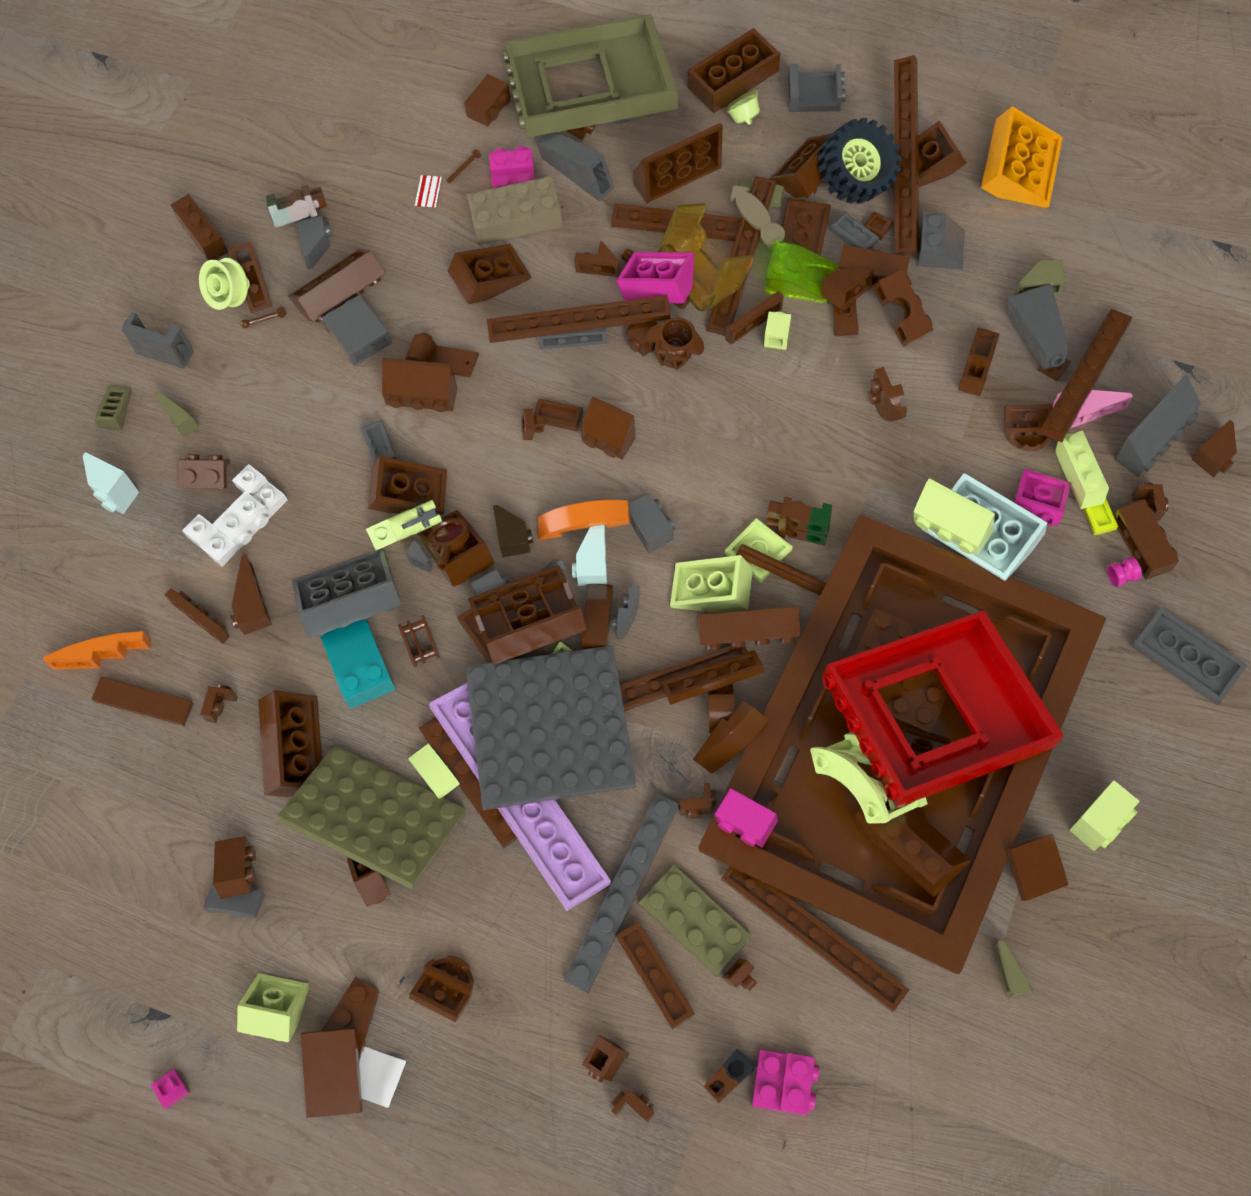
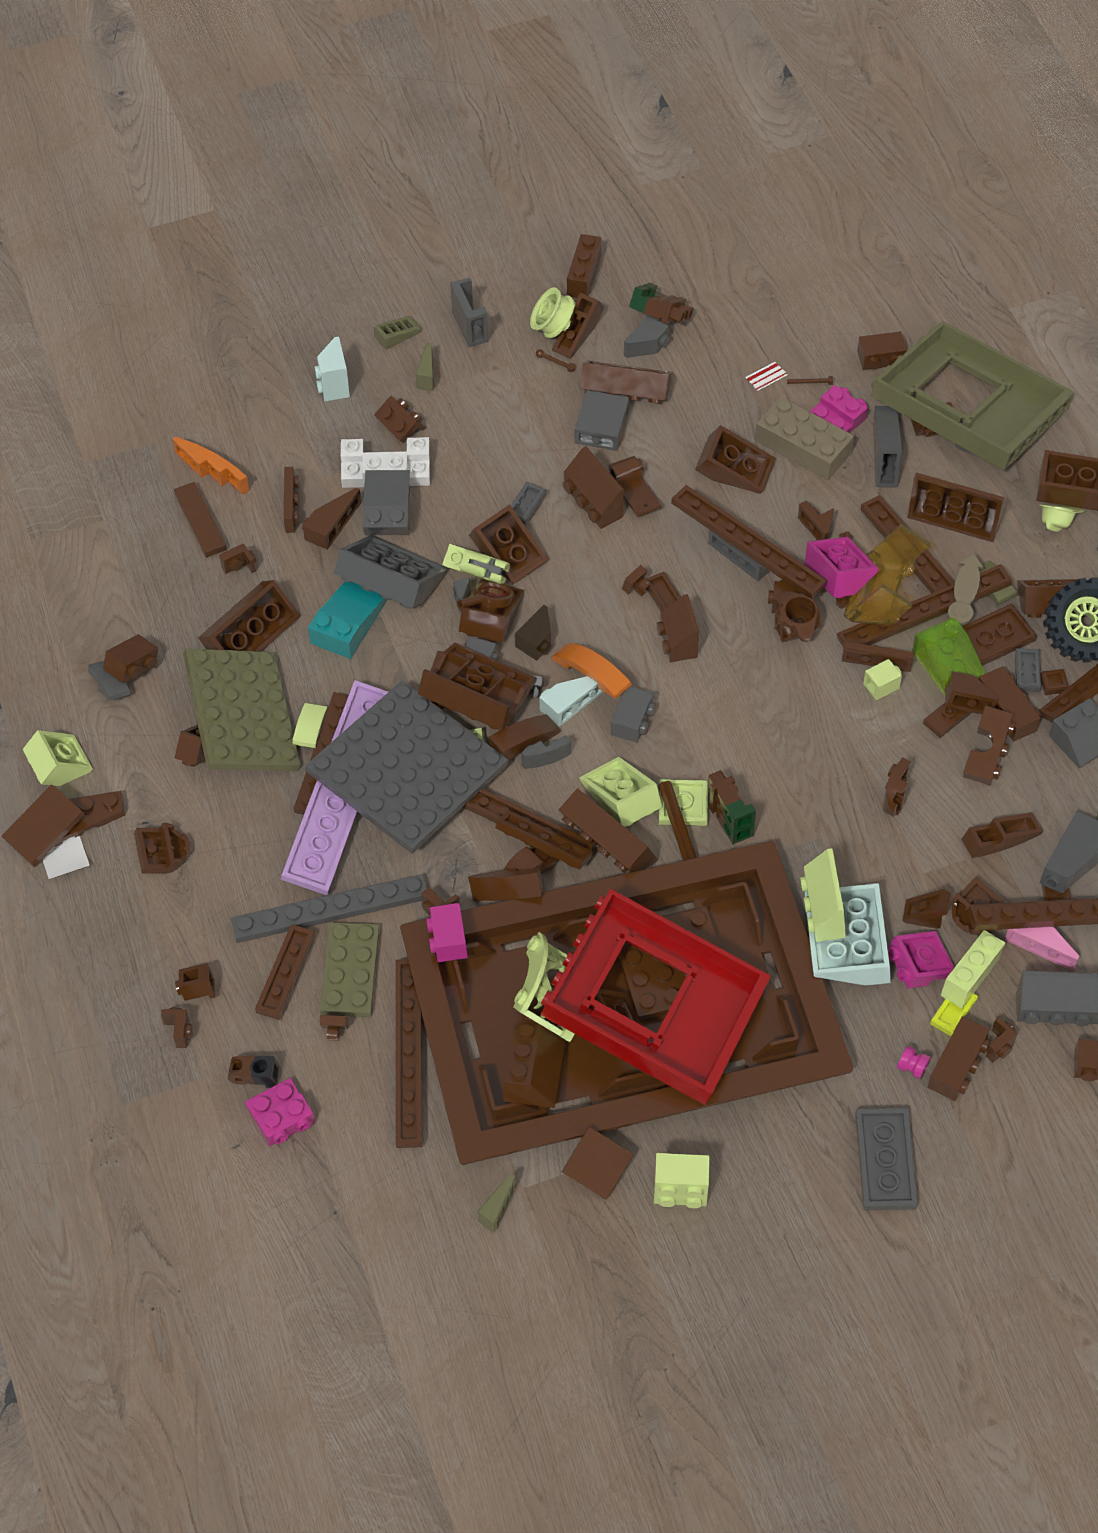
camera: 45 degrees right, 10 degrees down
(278, 543) = (386, 502): none -> dark grey slope
(421, 655) = (395, 635): reddish brown piece -> none
(1002, 458) = (927, 909): none -> reddish brown slope

